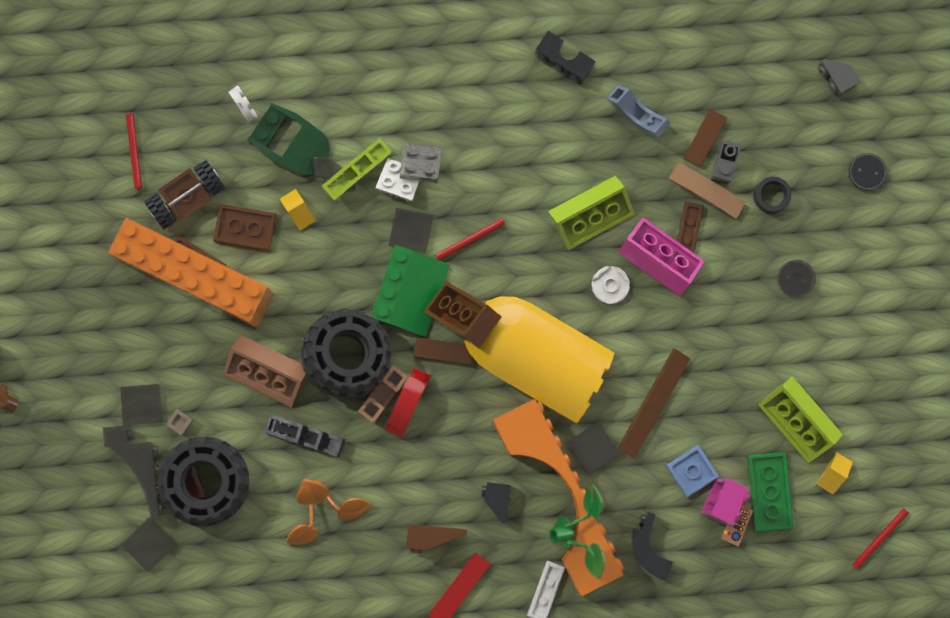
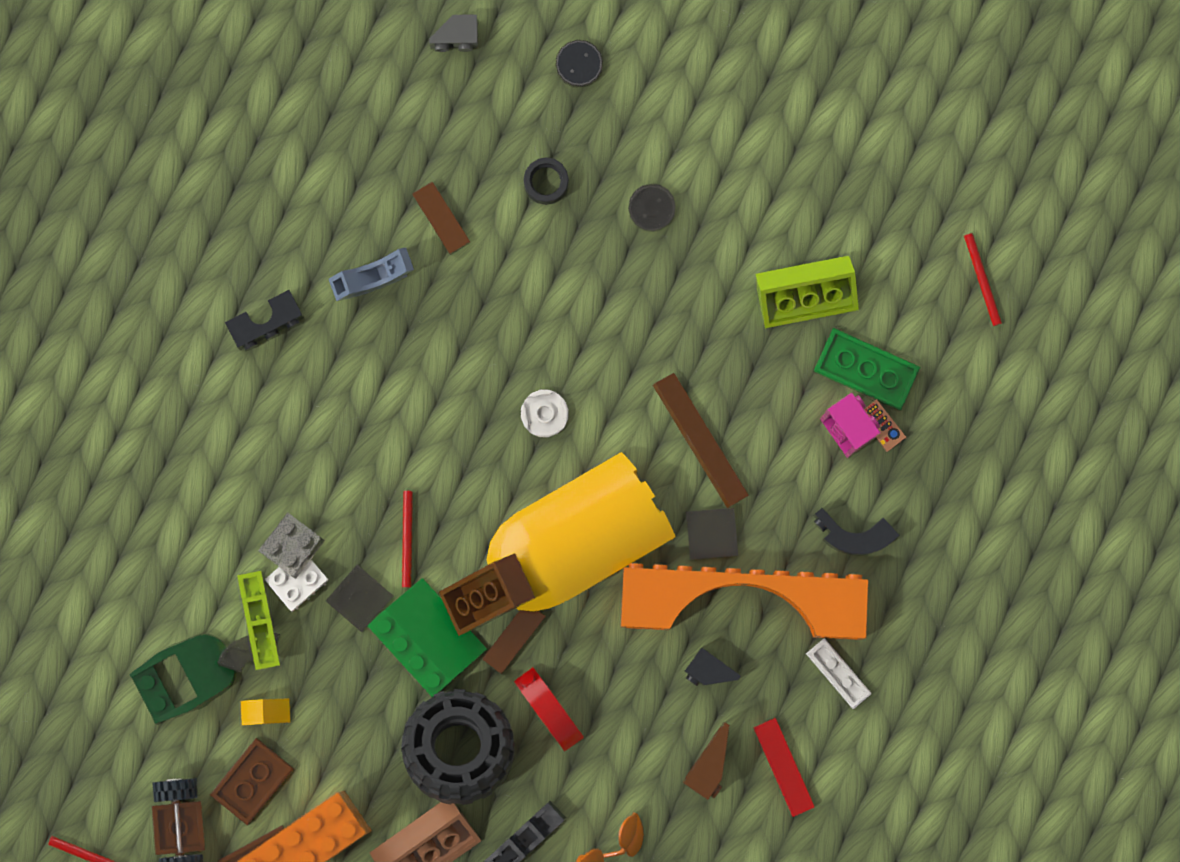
camera: 55 degrees left, 0 degrees up
(243, 104) = (114, 706): white plate -> none
(383, 394) = (524, 732): medium nougat arch -> none
(563, 533) = (788, 619): green plant -> none
(592, 212) = (453, 388): lime slope -> none
(655, 255) = (545, 341): dark pink slope -> none
(689, 226) = (533, 295): reddish brown tile -> none
(692, 471) = (797, 440): medium blue tile -> none
(706, 190) = (500, 249): medium nougat slope -> none
(726, 162) = (481, 211): dark grey slope -> none
(835, 473) = (885, 287): yellow slope -> none

